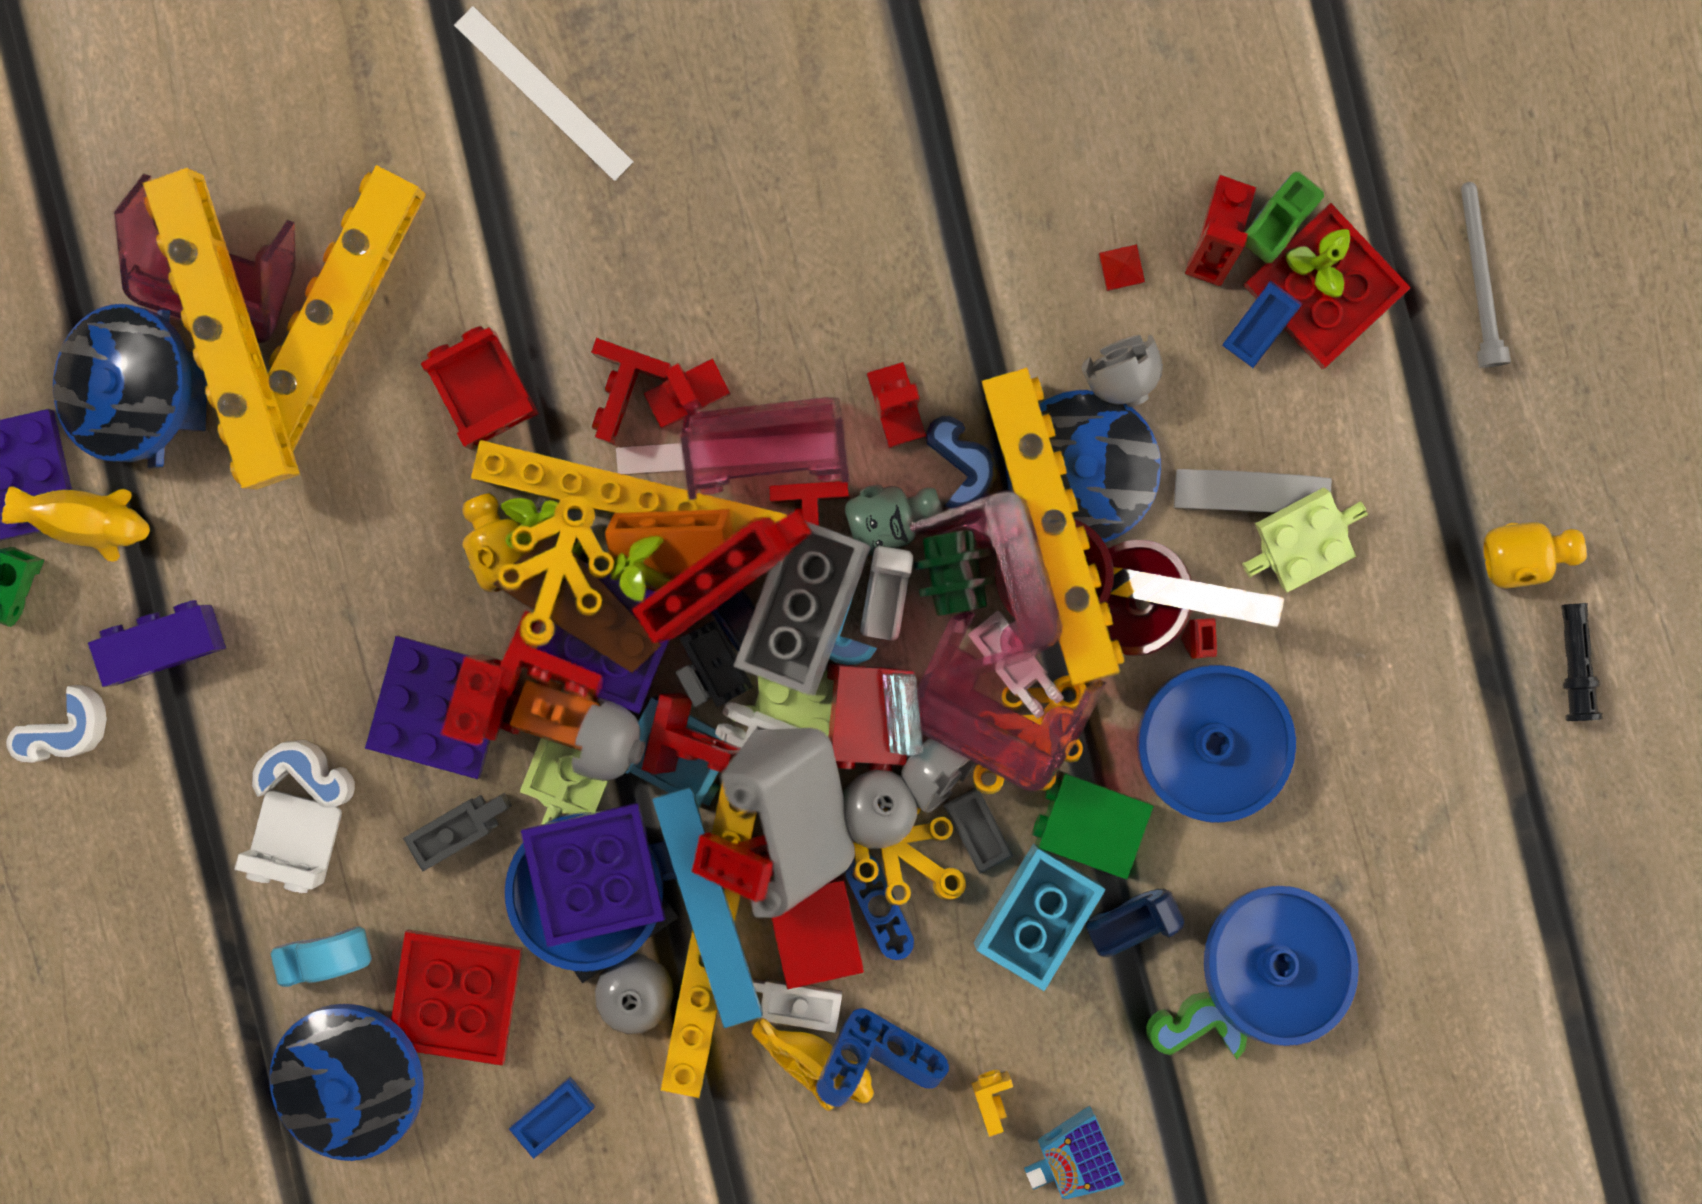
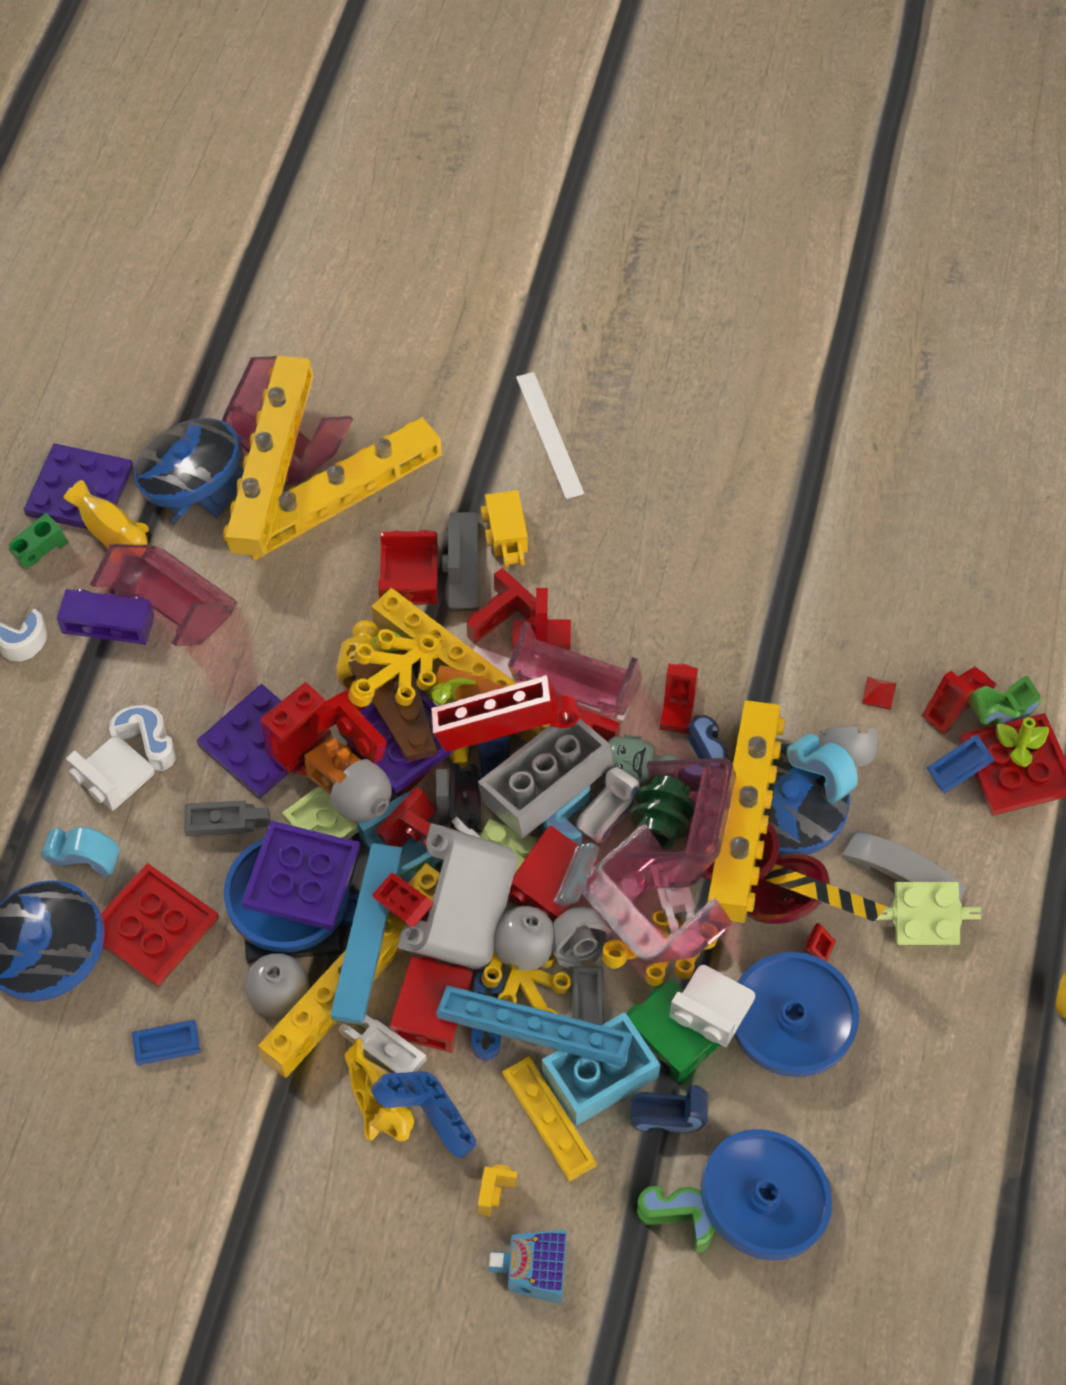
camera: 25 degrees right, 30 degrees down
(213, 563) = (171, 587): none -> clear pink windscreen
(537, 340) = (462, 560): none -> dark grey bracket
(566, 268) = (506, 526): none -> yellow brick
(948, 917) = (534, 1026): none -> dark azure tile
(1005, 989) = (549, 1119): none -> yellow tile
(1111, 416) = (826, 760): none -> medium azure animal
(1129, 793) = (712, 1005): none -> white bracket

